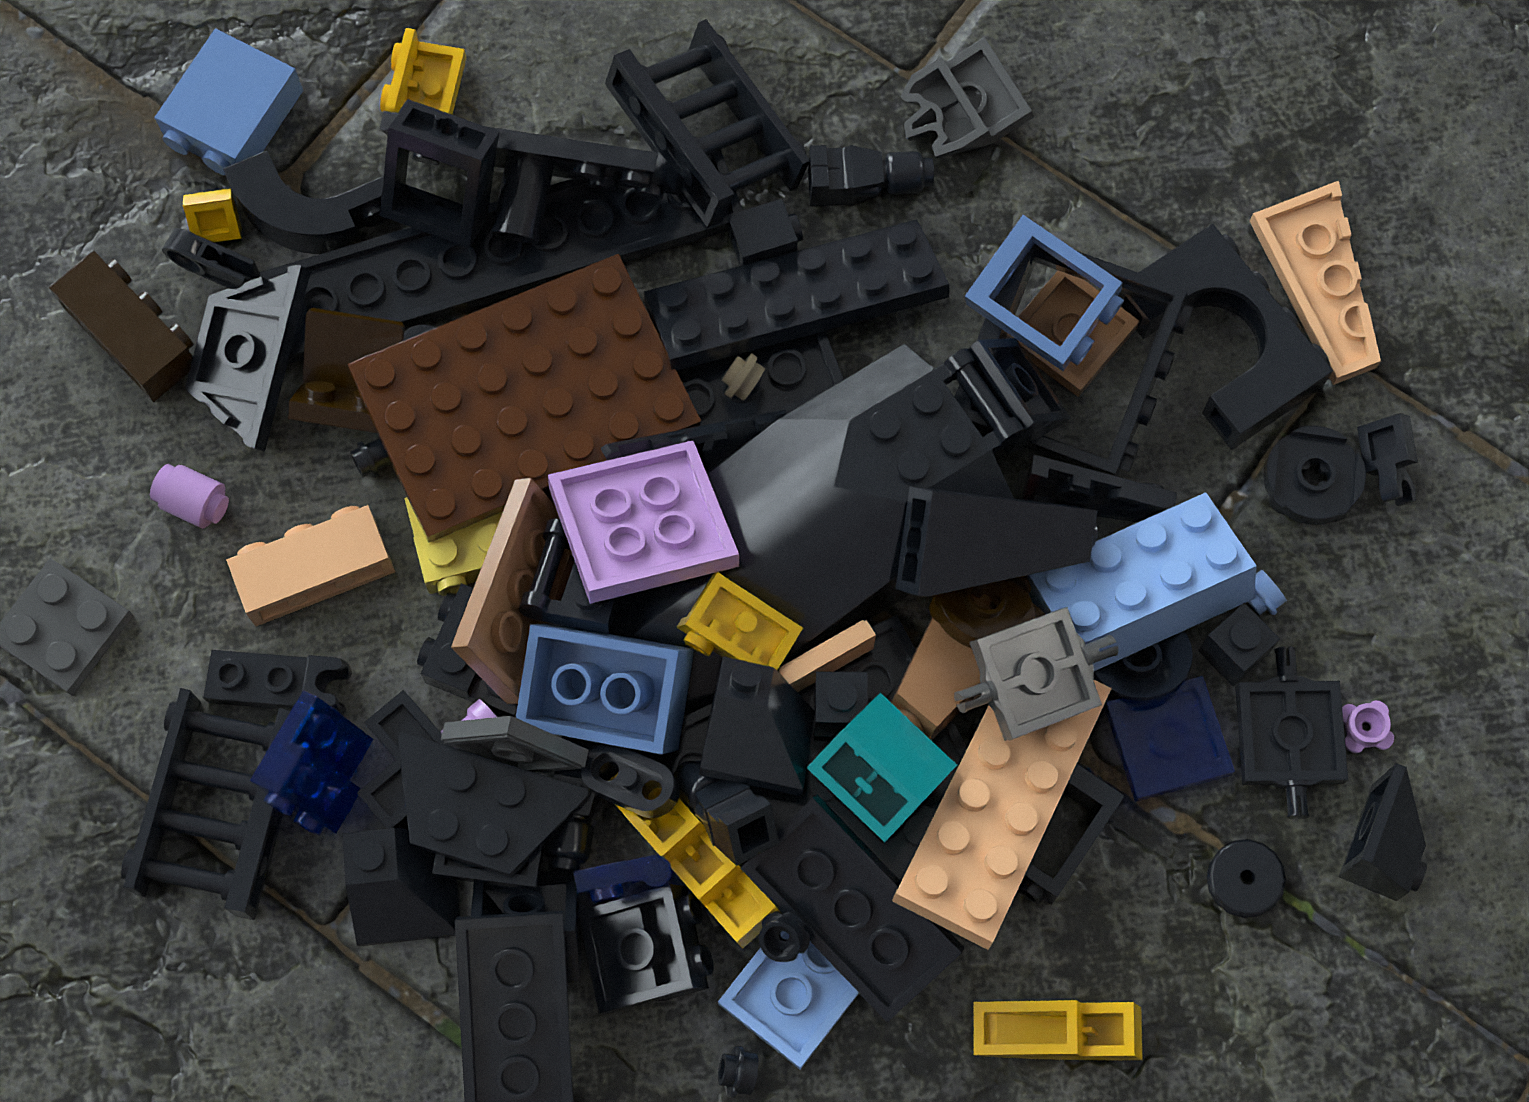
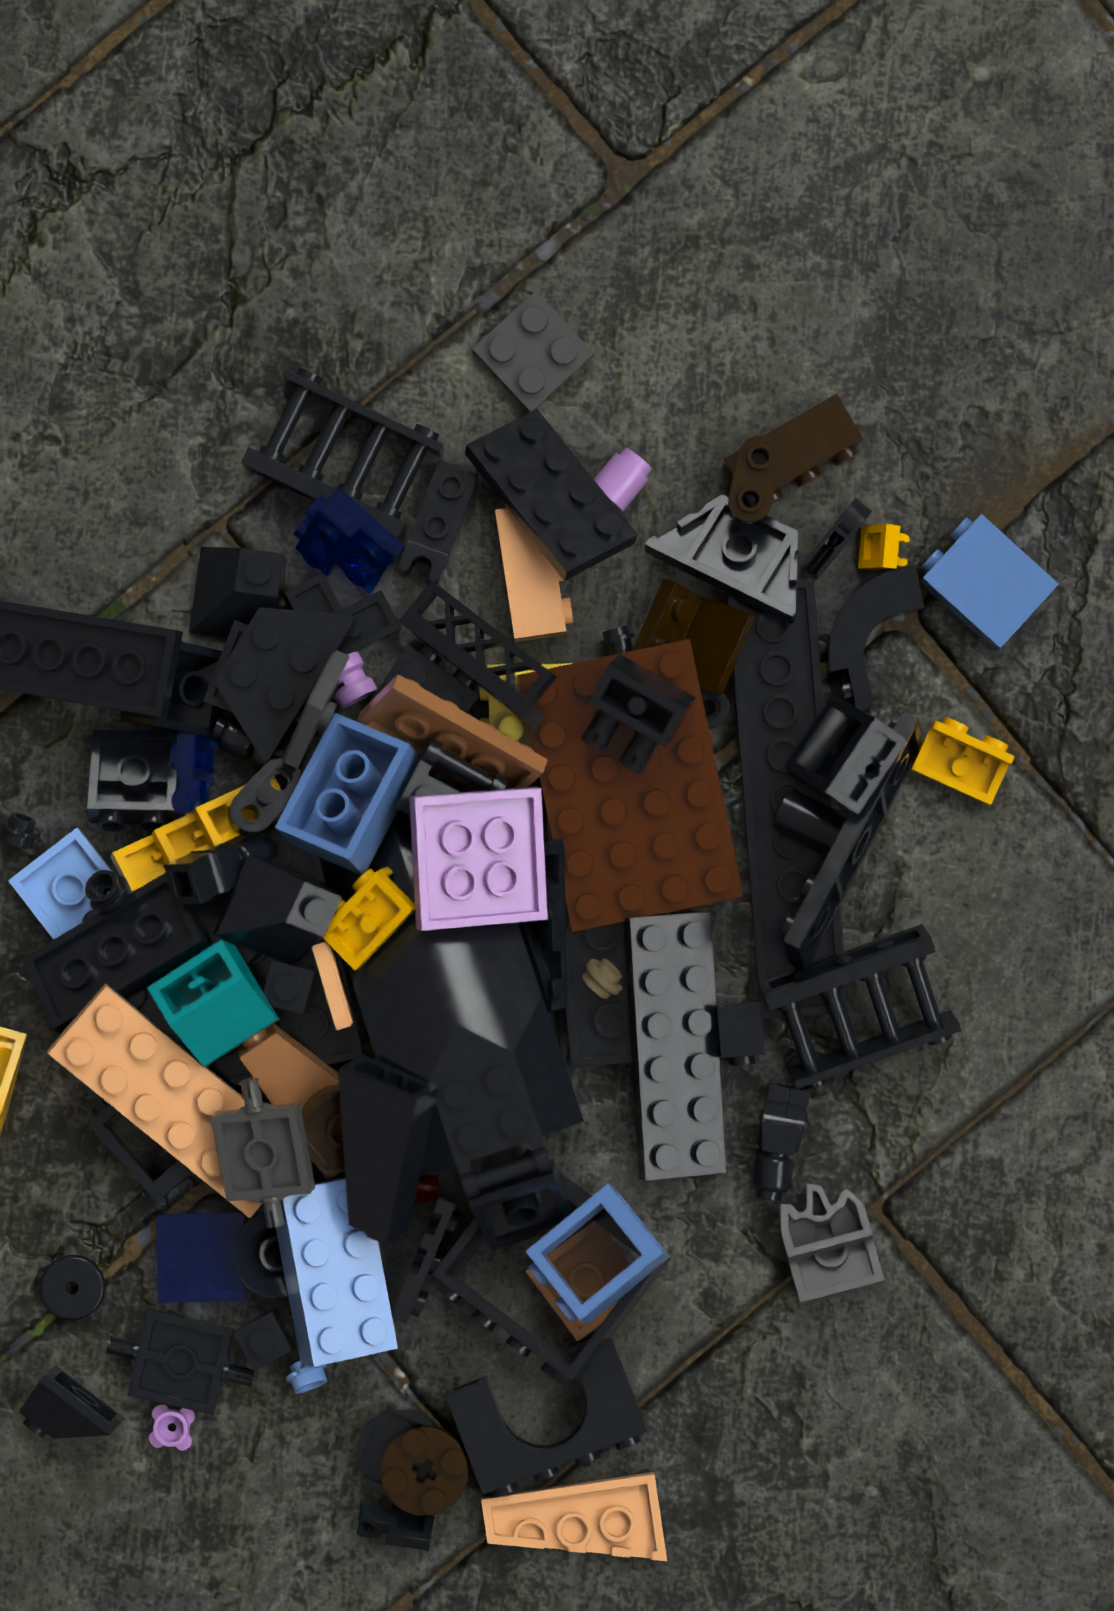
camera: 105 degrees right, 15 degrees up
(156, 345) = (755, 479): none -> dark brown plate
(215, 555) = (550, 494): none -> black plate
(423, 383) = (640, 701): none -> black brick
(429, 589) = (473, 667): none -> black fence
(1348, 421) = (433, 1494): none -> dark brown plate

